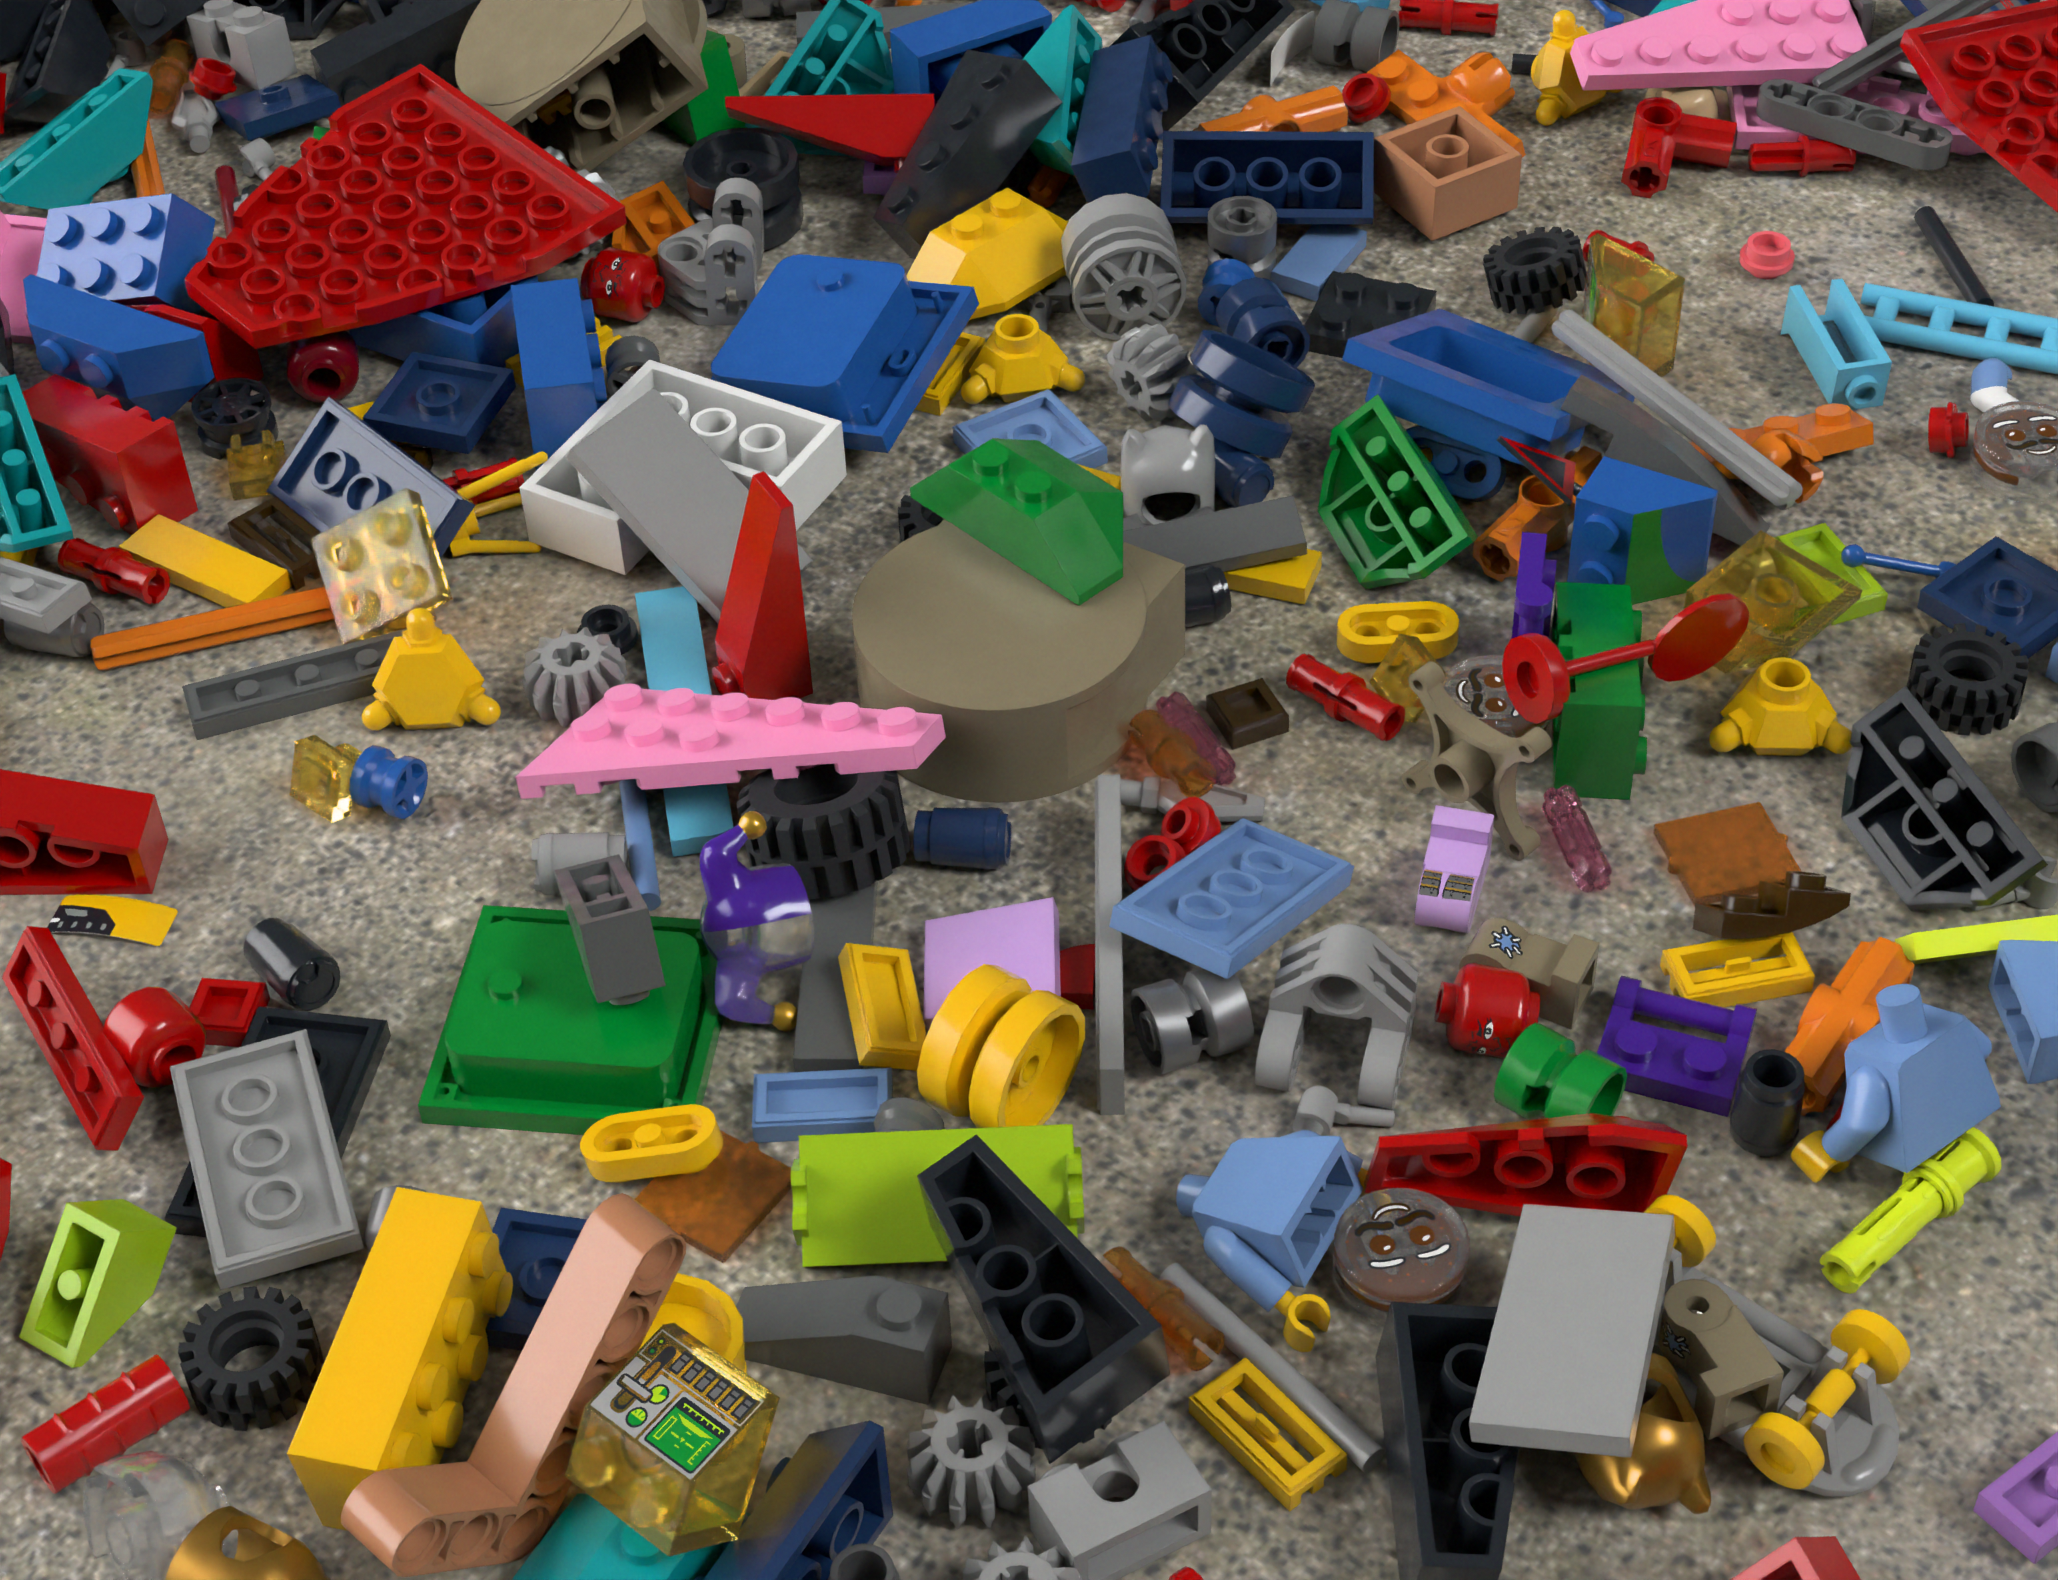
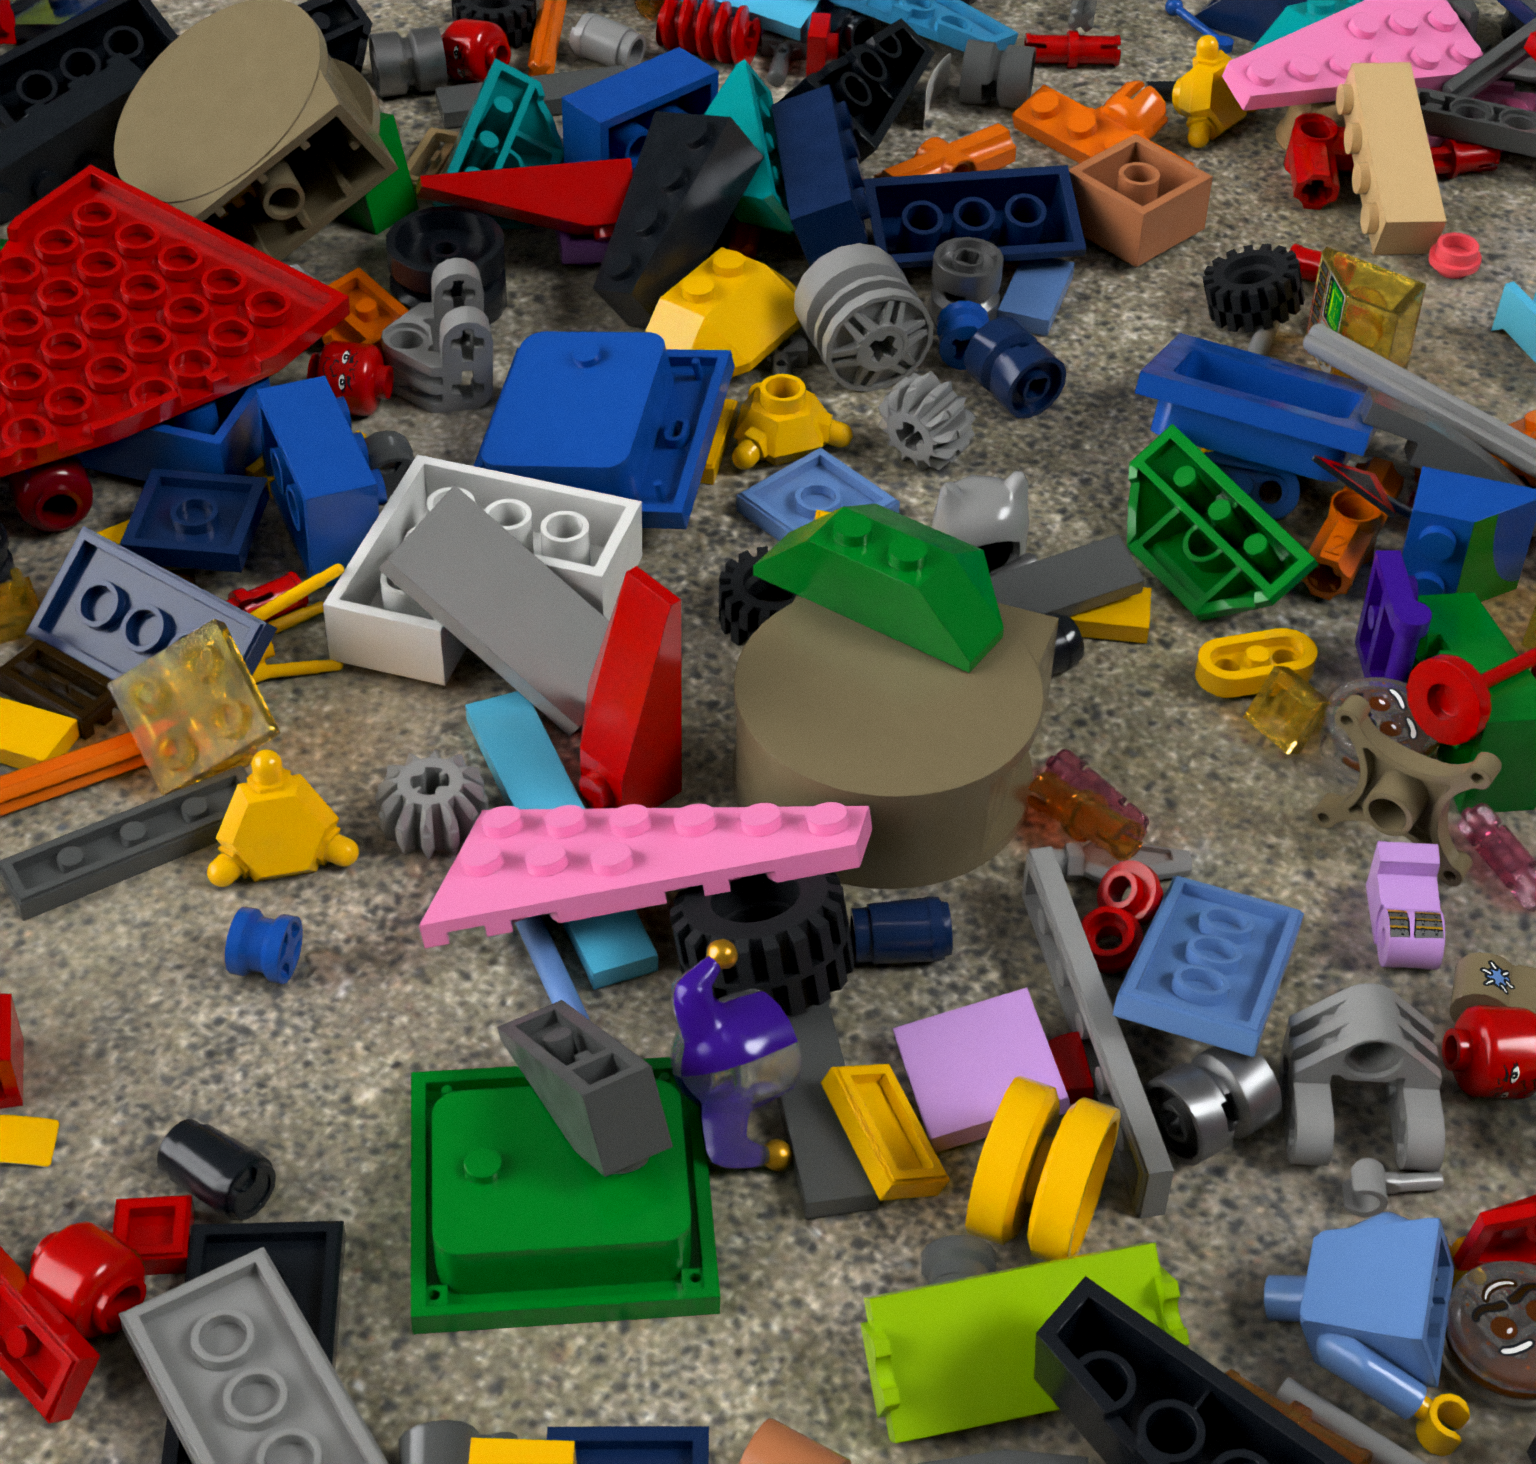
camera: 15 degrees left, 0 degrees up
(323, 776) = (190, 948): clear yellow tile -> none
(563, 850) = (486, 1004): light grey piece -> none
(614, 622) = (449, 739): black plate -> none
(651, 1143) = (689, 1325): yellow plate -> none
(721, 1202) = (764, 1366): clear orange piece -> none
(817, 1102) = (848, 1250): medium blue tile -> none
(1240, 475) = (1050, 520): dark blue piece -> none
(1241, 394) = (1029, 439): dark blue wheel -> none
(1247, 713) = (1135, 763): dark brown tile -> none
(1345, 697) = (1230, 735): red pin -> none
(1360, 305) = (1104, 346): black plate -> none
(1365, 97) = (1028, 132): red plate -> none
(1723, 149) = (1390, 158): none -> tan brick

